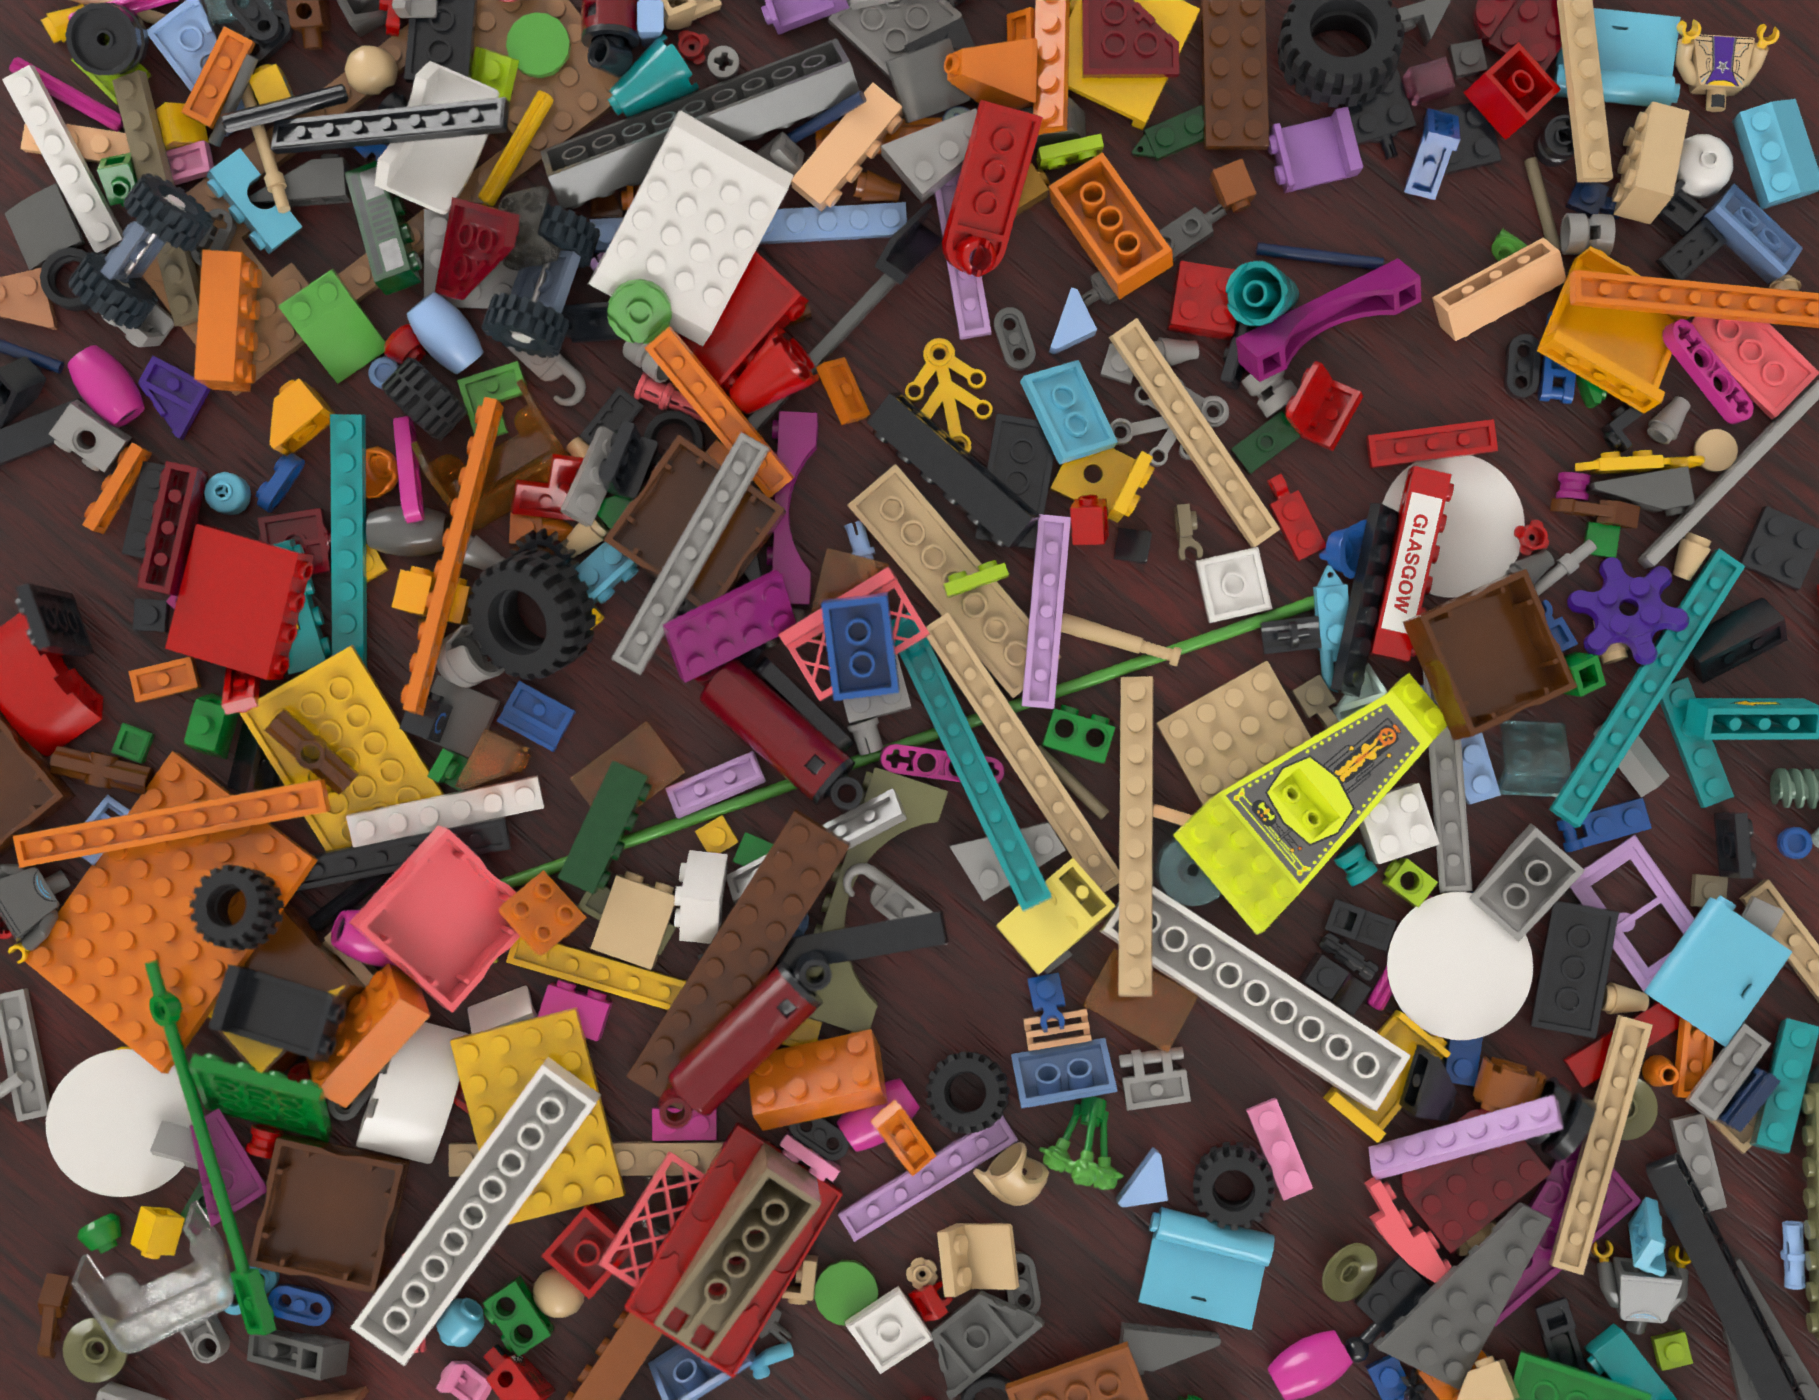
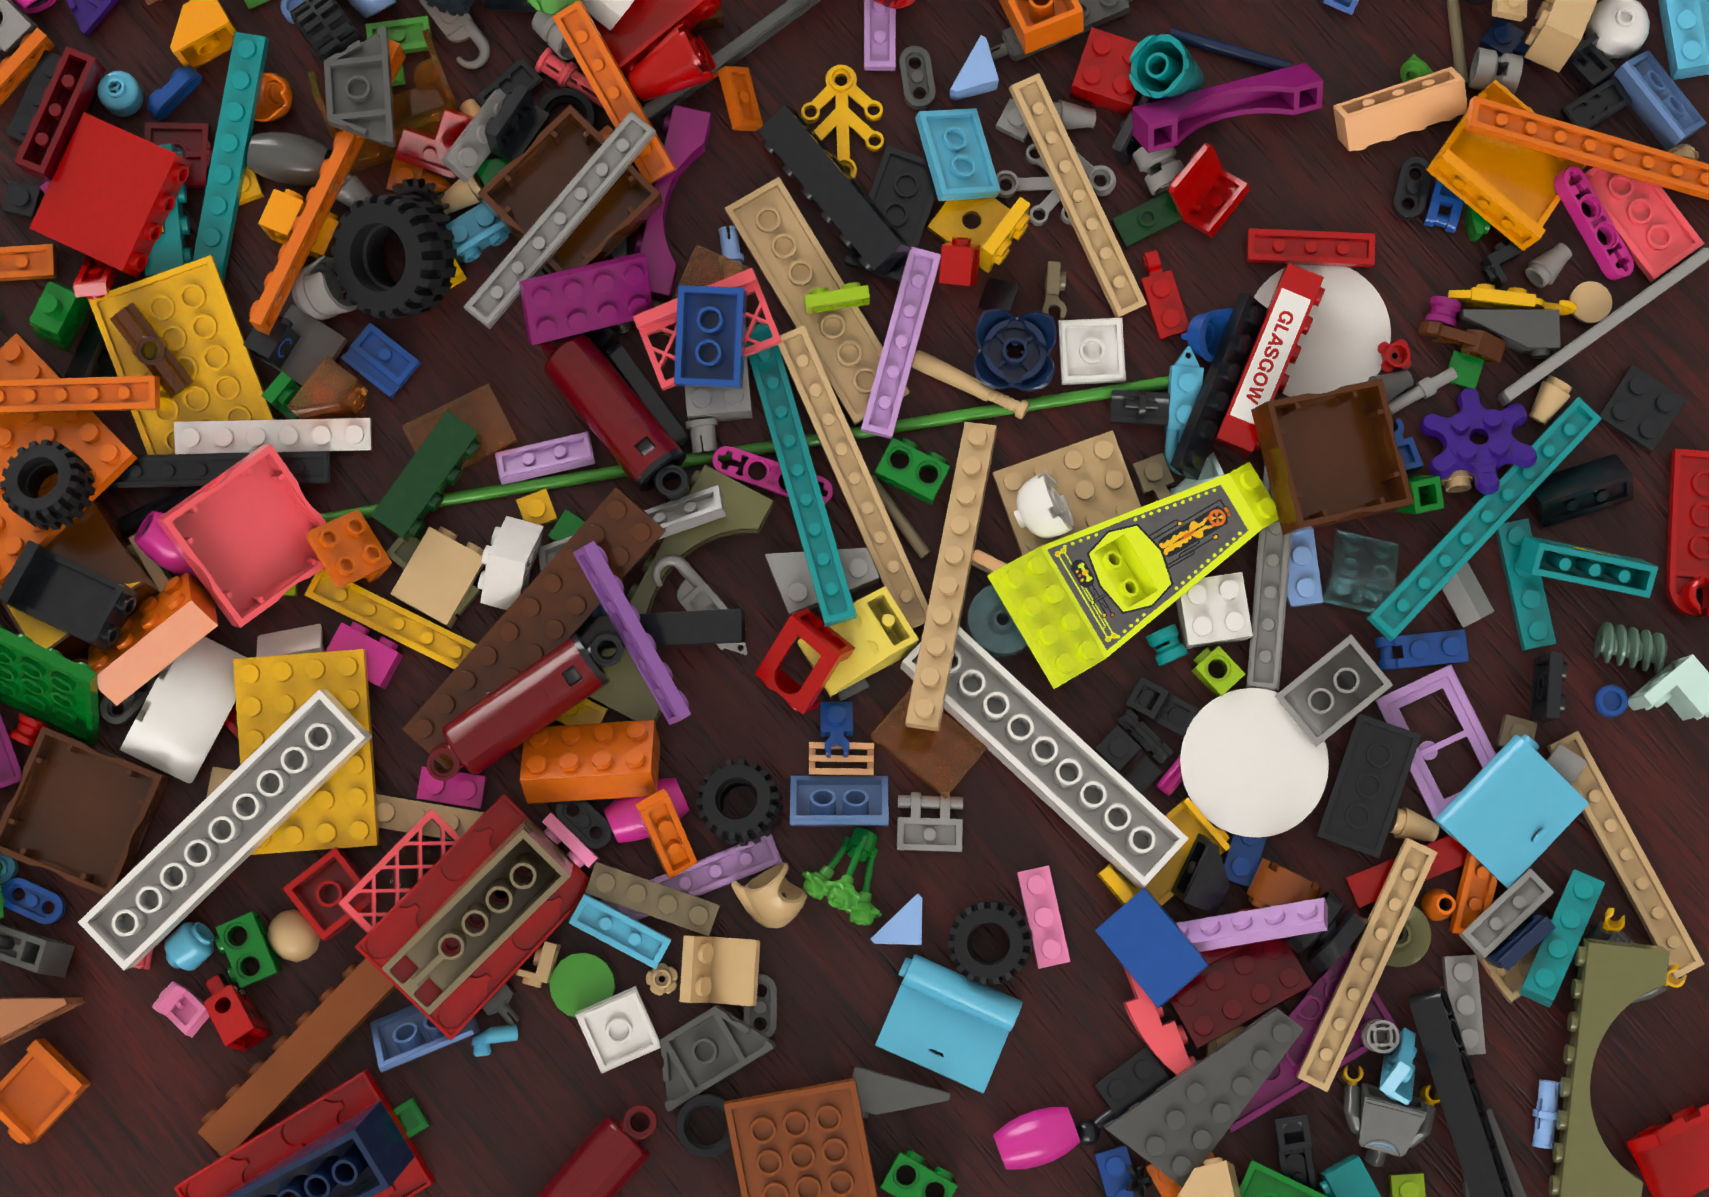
camera: 10 degrees right, 5 degrees down
(408, 470) = (300, 99): dark pink beam -> none
(469, 456) = (361, 89): none -> dark grey wing
(829, 943) = (628, 626): none -> medium lavender plate
(874, 1236) = (620, 931): none -> medium azure plate
(899, 1199) = (652, 898): none -> dark tan plate
(929, 1303) = (663, 1009): red tile -> none
(1025, 926) = (822, 639): none -> red panel
(1176, 581) = (1032, 333): none -> dark blue brick
(1214, 754) = (1042, 507): none -> white cylinder
(1349, 1272) = (1092, 1051): olive dish -> none
(1392, 1167) = (1152, 947): none -> blue tile
(1618, 1209) = (1374, 1032): none -> light grey wheel

